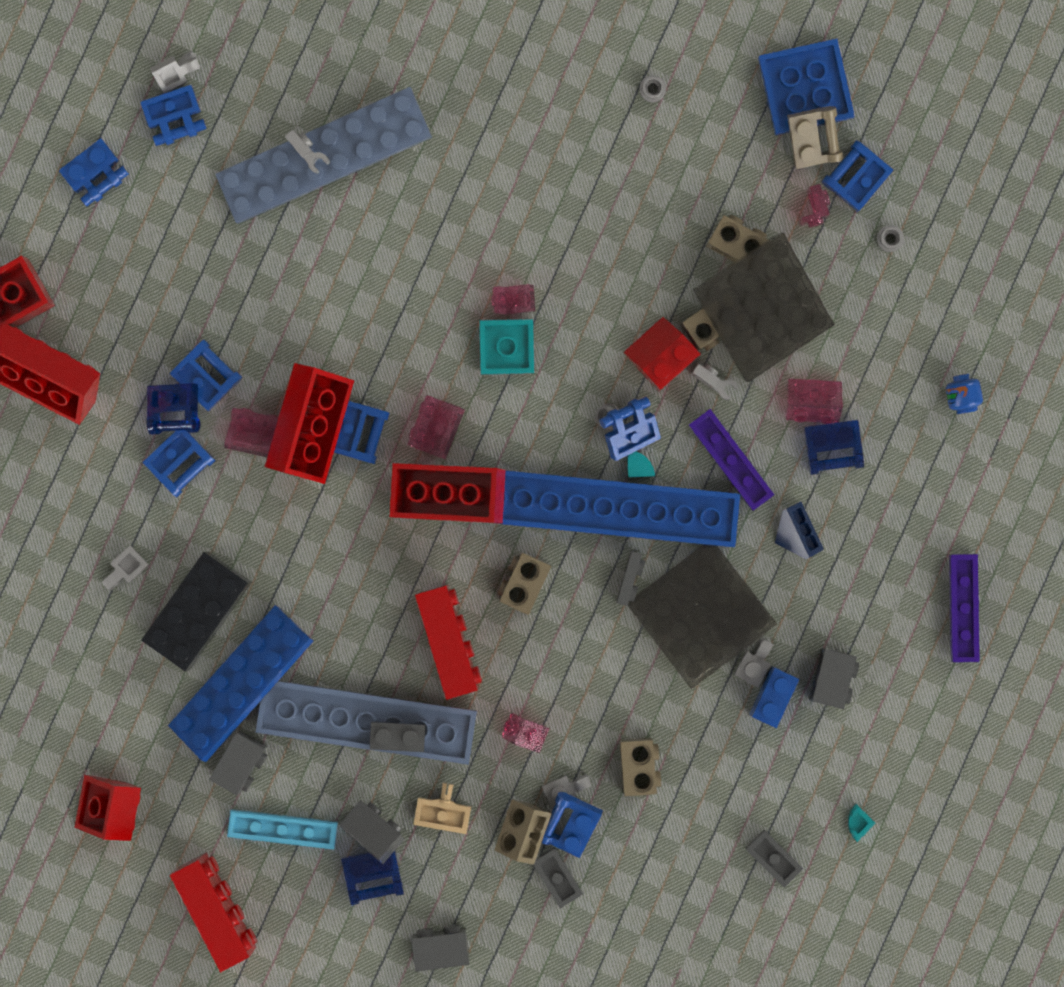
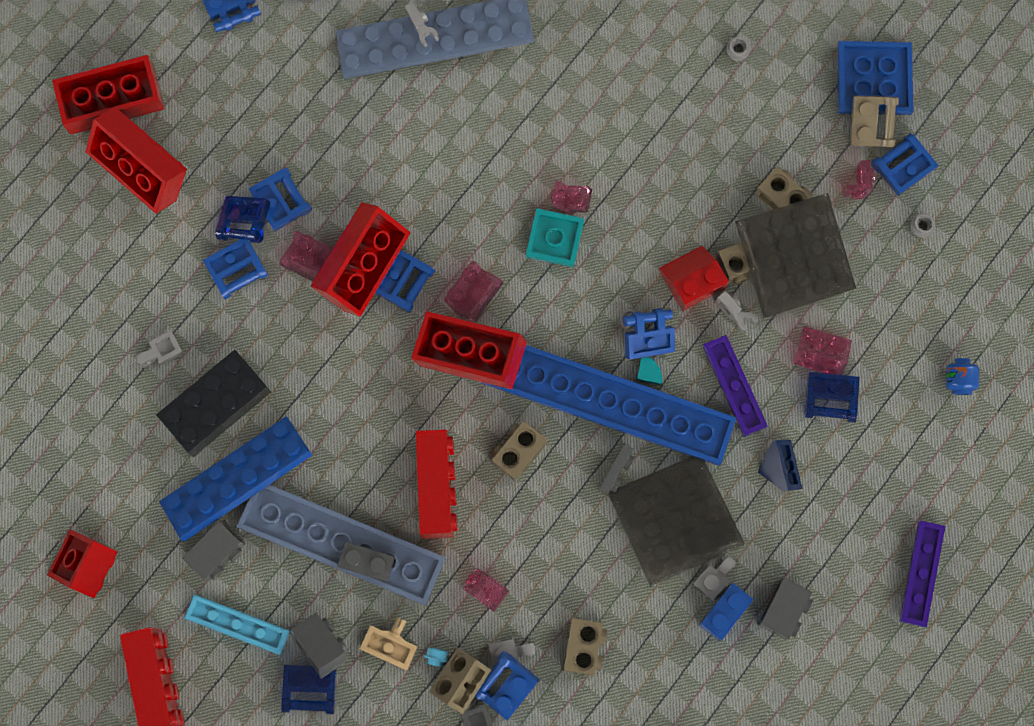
camera: 15 degrees right, 10 degrees down
(492, 812) = (436, 656): none -> medium azure plate

